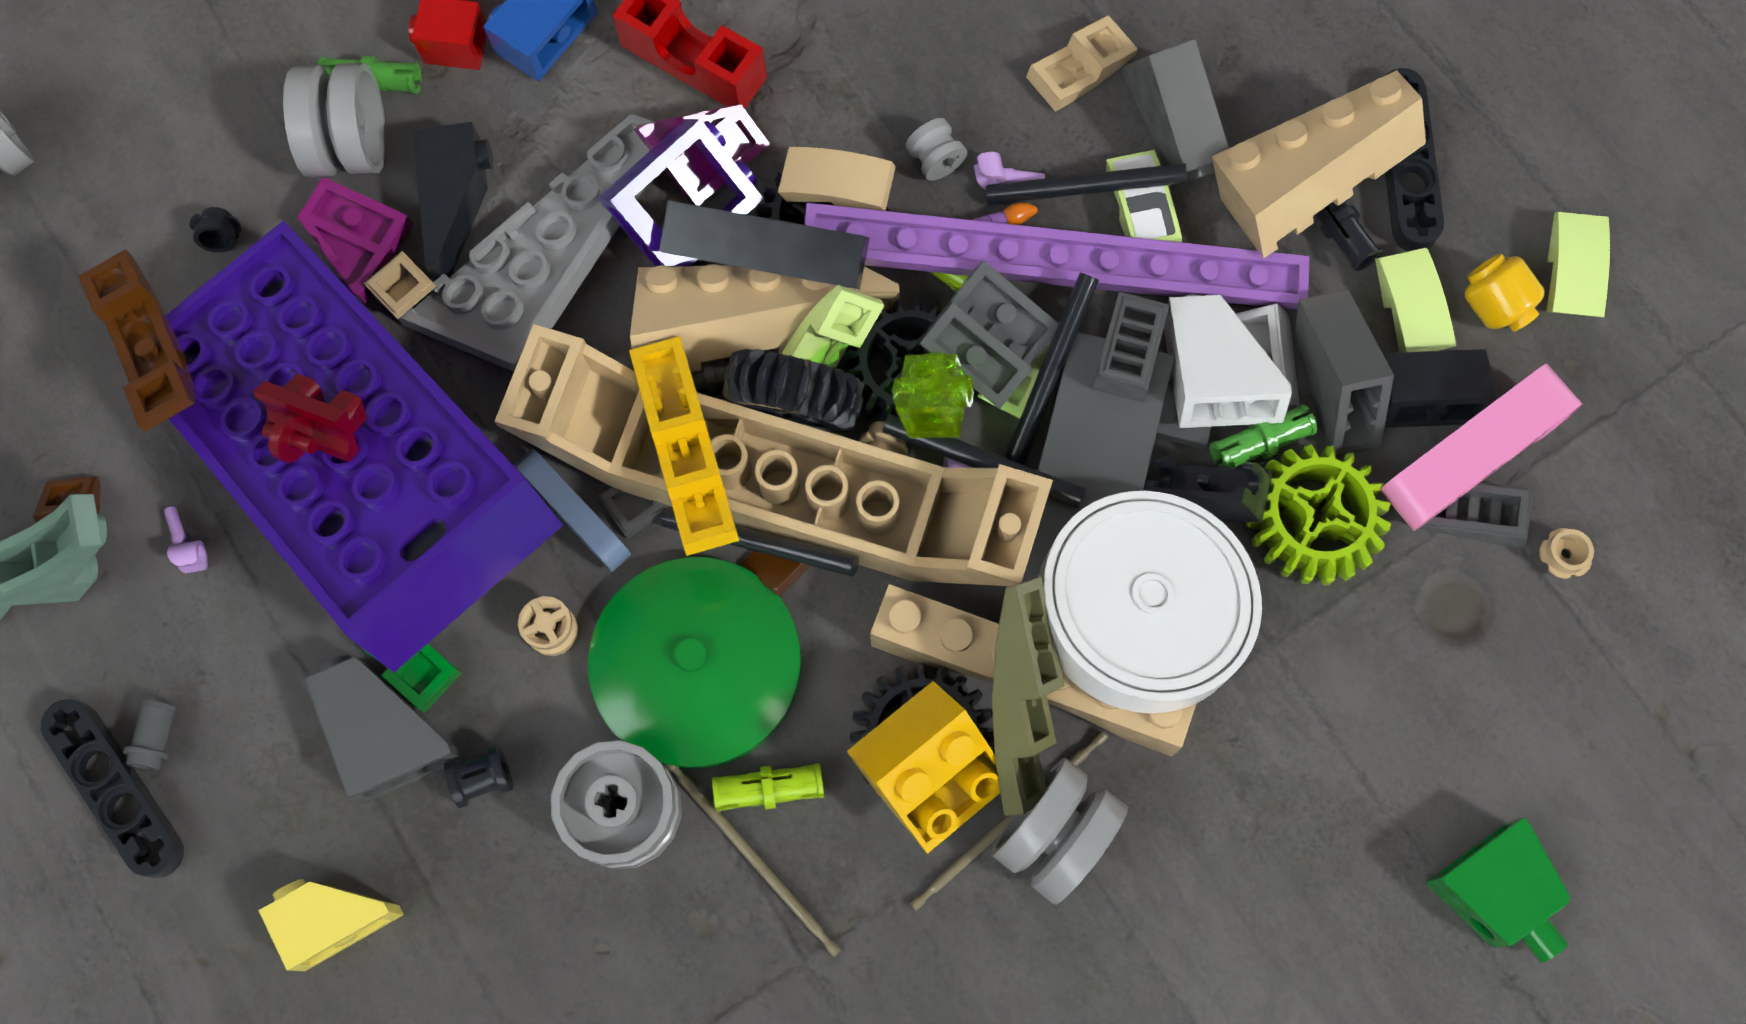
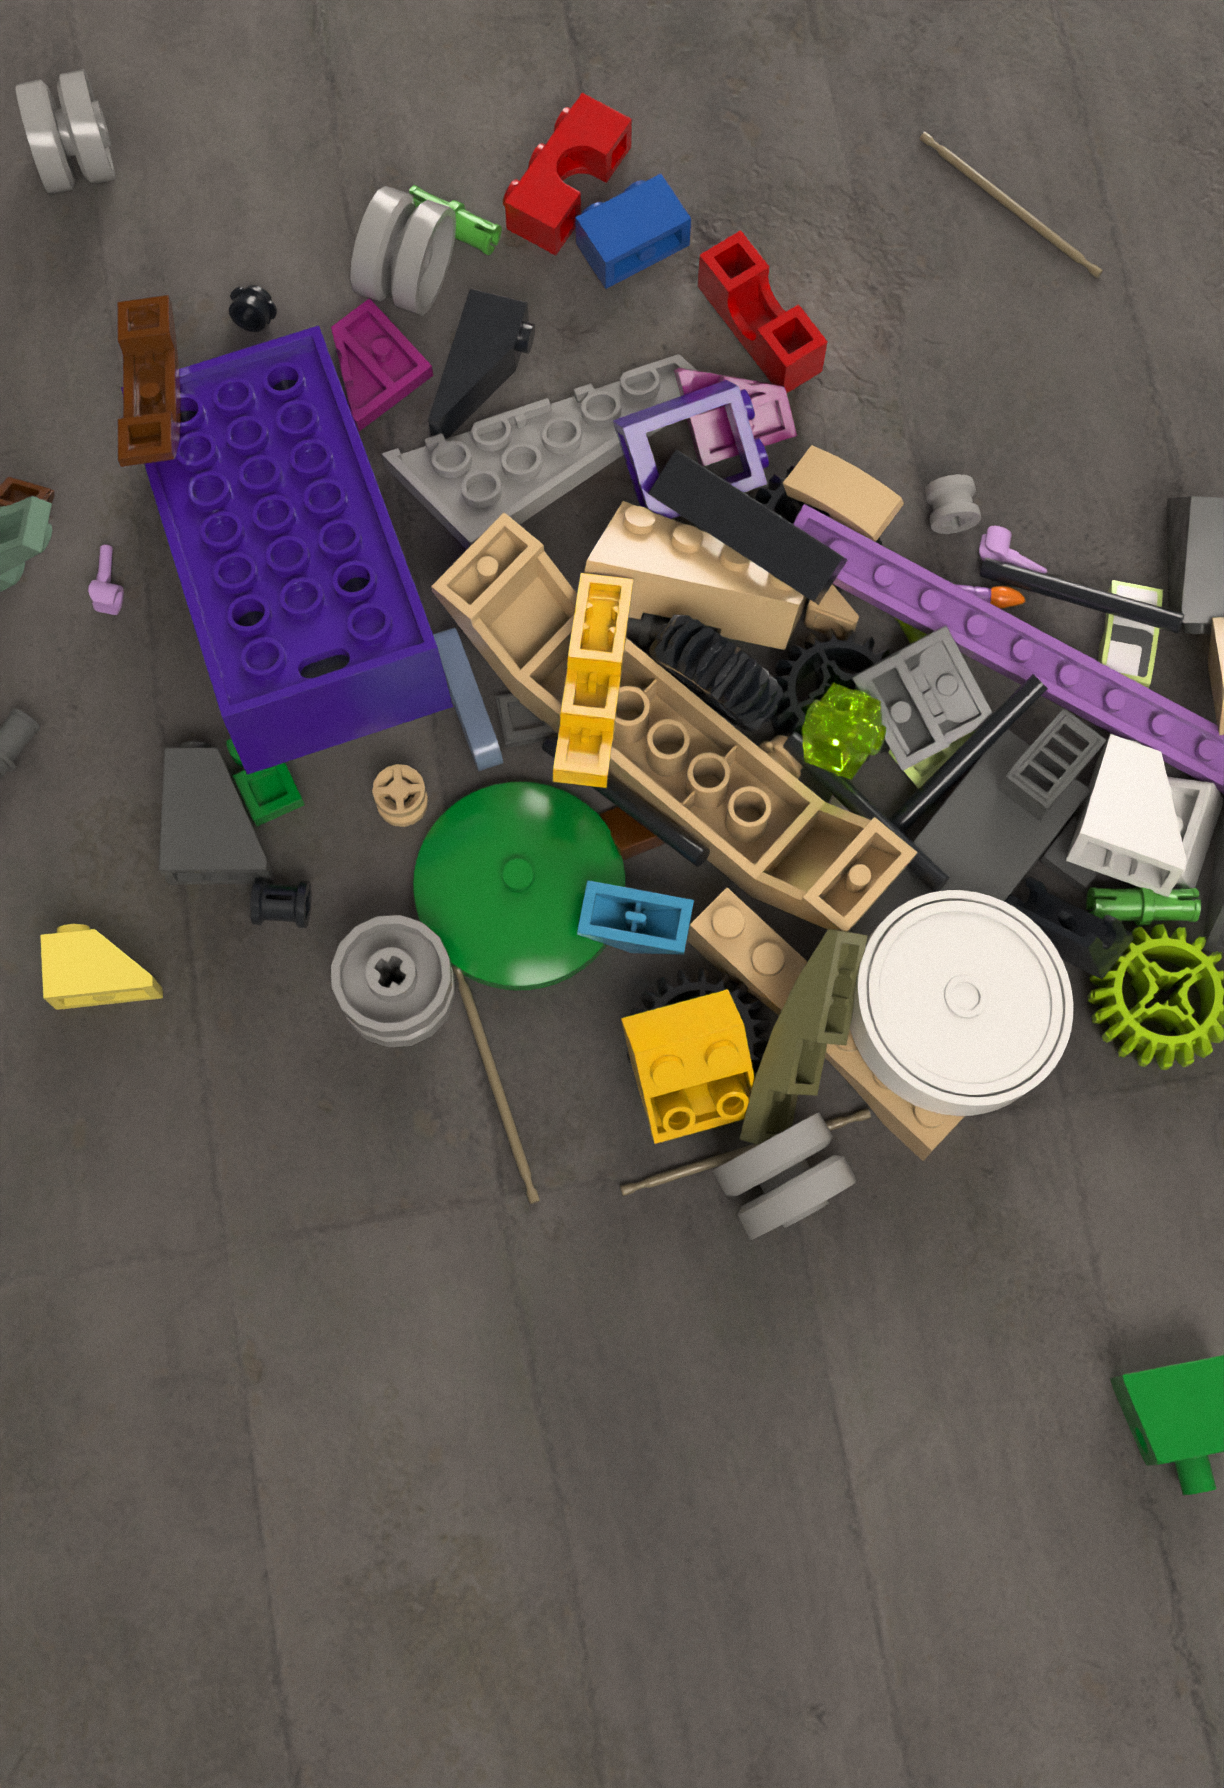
camera: 20 degrees right, 0 degrees up
(303, 423) = (263, 517): dark red hips -> none
(399, 285) = (397, 427): tan slope -> none
(767, 787) = (536, 1025): lime pin -> none
(817, 649) = (635, 919): none -> dark azure slope
(833, 324) = (781, 628): yellowish green slope -> none
(1083, 64) = (1130, 481): tan slope -> none

